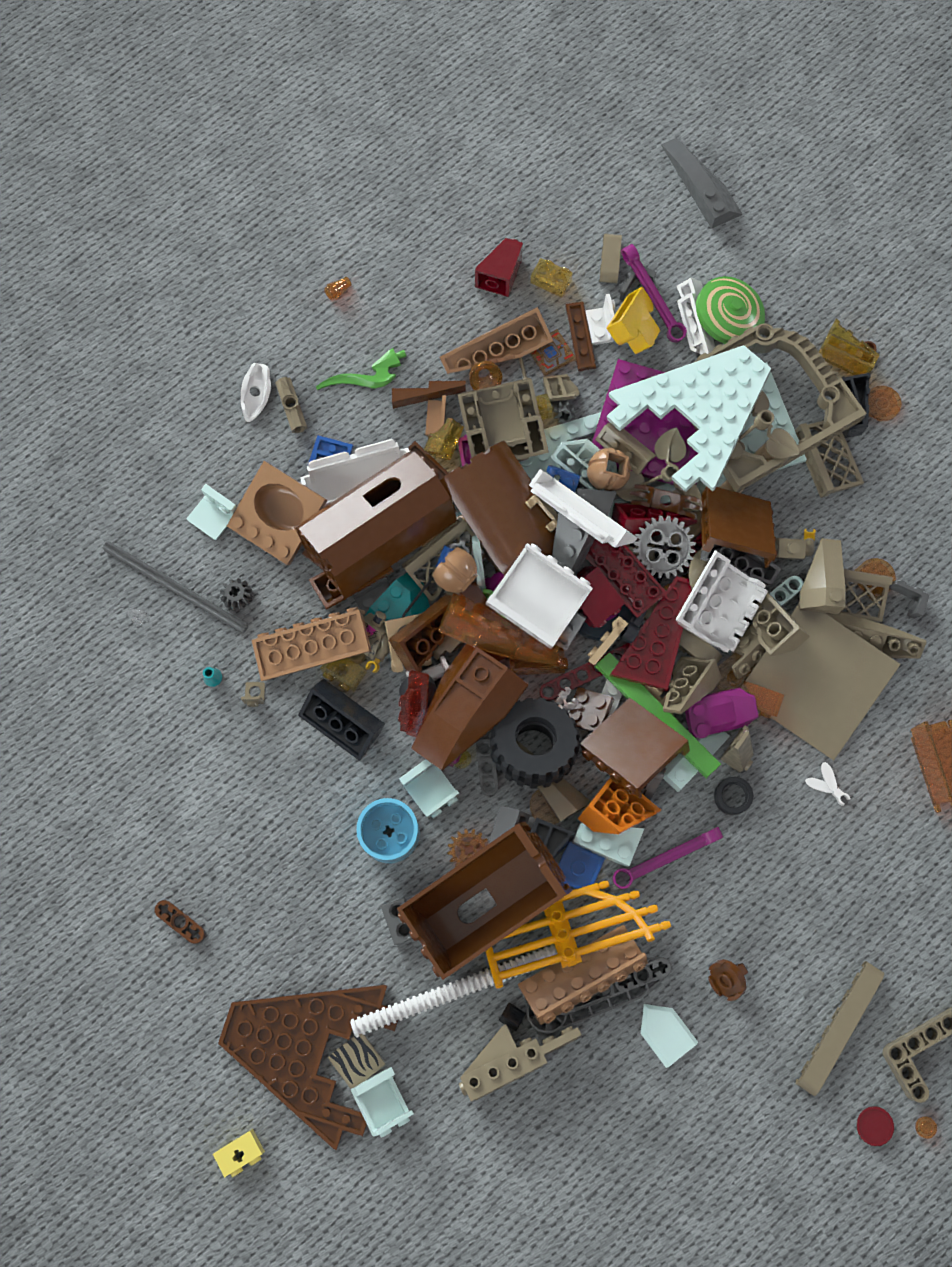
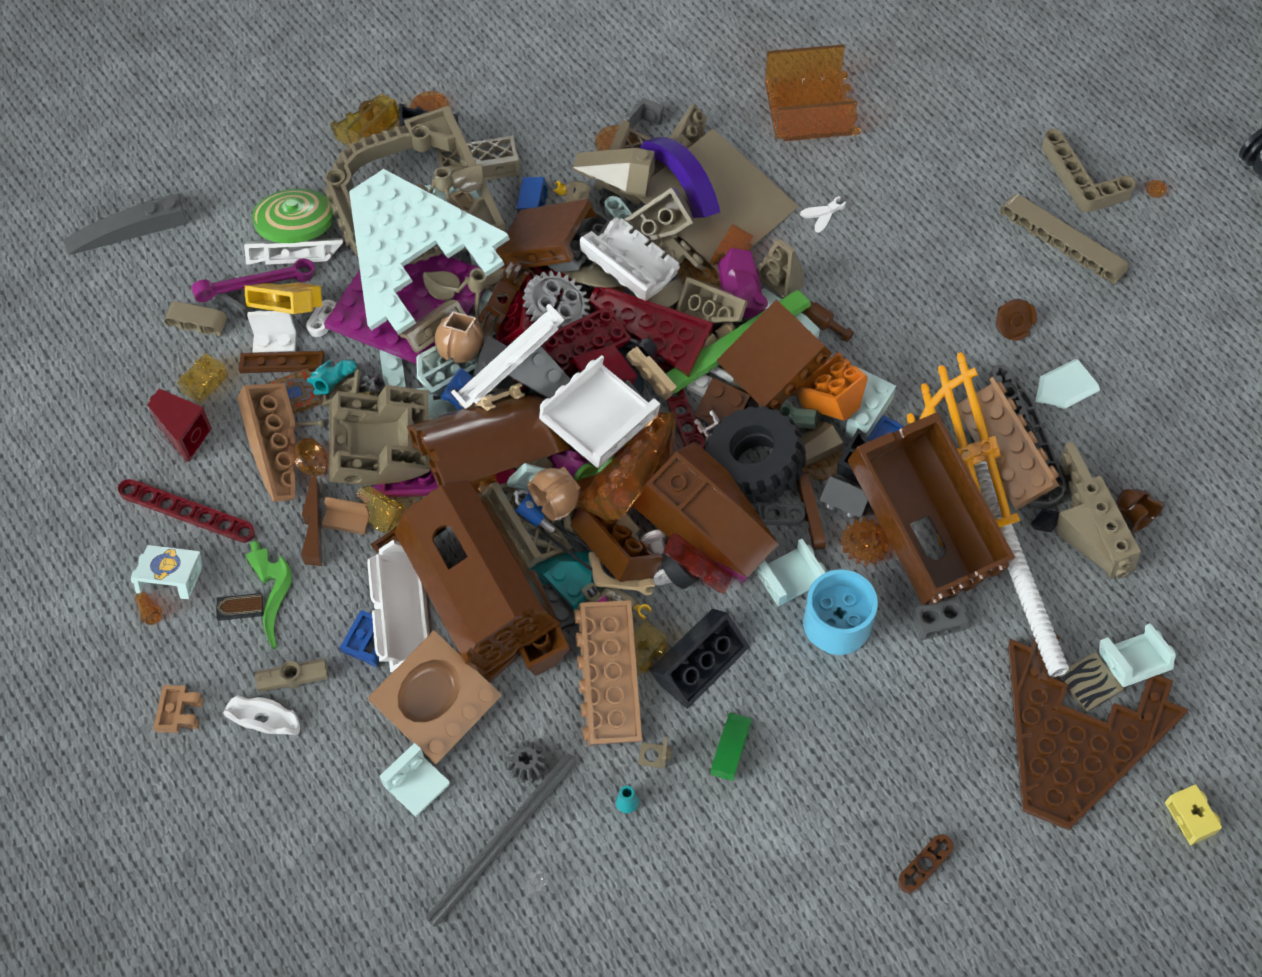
camera: 80 degrees left, 15 degrees down
(255, 325) = (171, 709): none -> medium nougat plate
(265, 753) = (730, 746): none -> green slope
(348, 354) = (239, 606): none -> tile
(368, 294) = (168, 567): none -> light aqua panel
(427, 303) = (179, 503): none -> dark red beam
(493, 799) = (811, 512): none -> reddish brown beam
(533, 1102) = (1138, 508): none -> reddish brown helmet
(568, 375) = (326, 377): none -> teal animal
(586, 779) = (802, 417): none -> sand green piece
(627, 355) = (318, 318): none -> white plate
(669, 856) = (870, 320): magenta piece -> none
(701, 794) = (824, 318): none -> reddish brown piece
(746, 788) = (832, 279): black tyre -> none
(792, 511) = (532, 193): none -> blue hinge
(833, 641) = (688, 172): none -> dark purple arch
(875, 1126) = (1156, 226): dark red piece -> none

